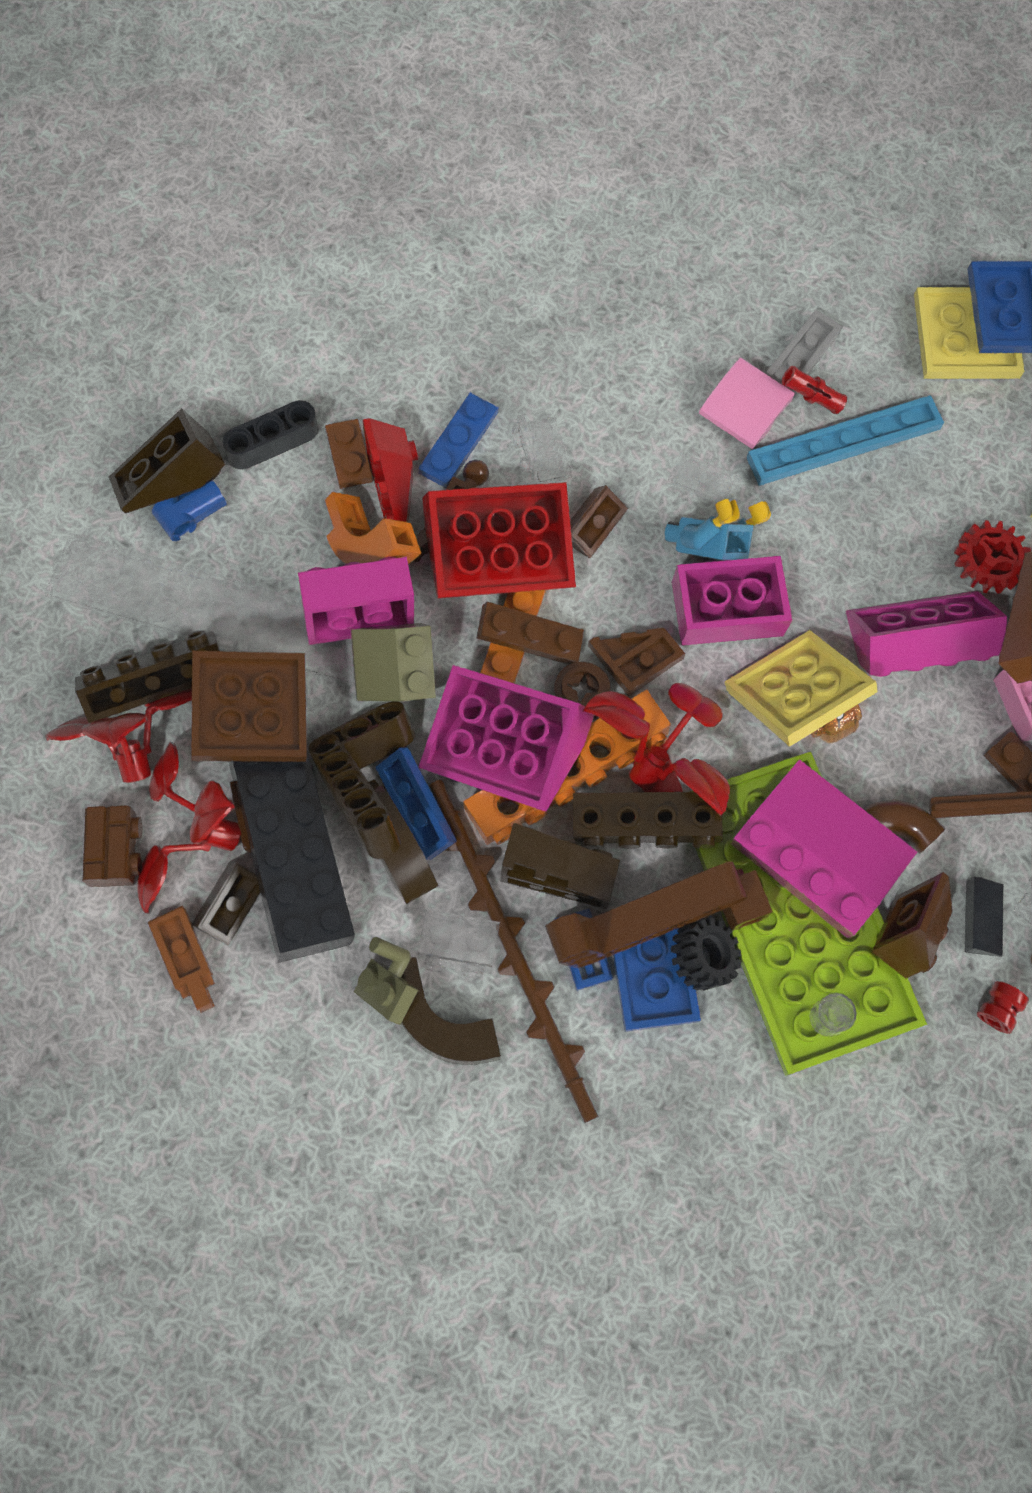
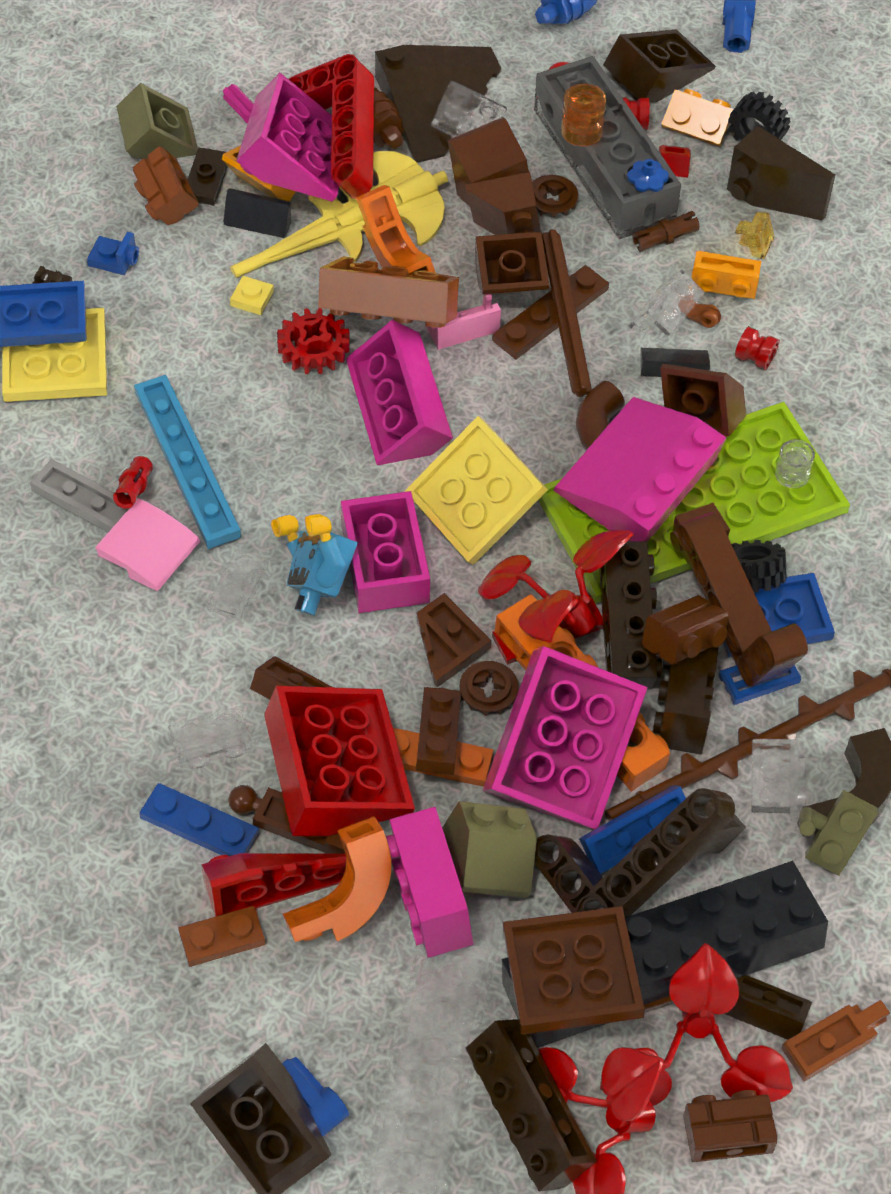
camera: 90 degrees left, 15 degrees down
(279, 422) = (203, 1000): black beam -> none
(613, 861) = (685, 629): none -> reddish brown brick

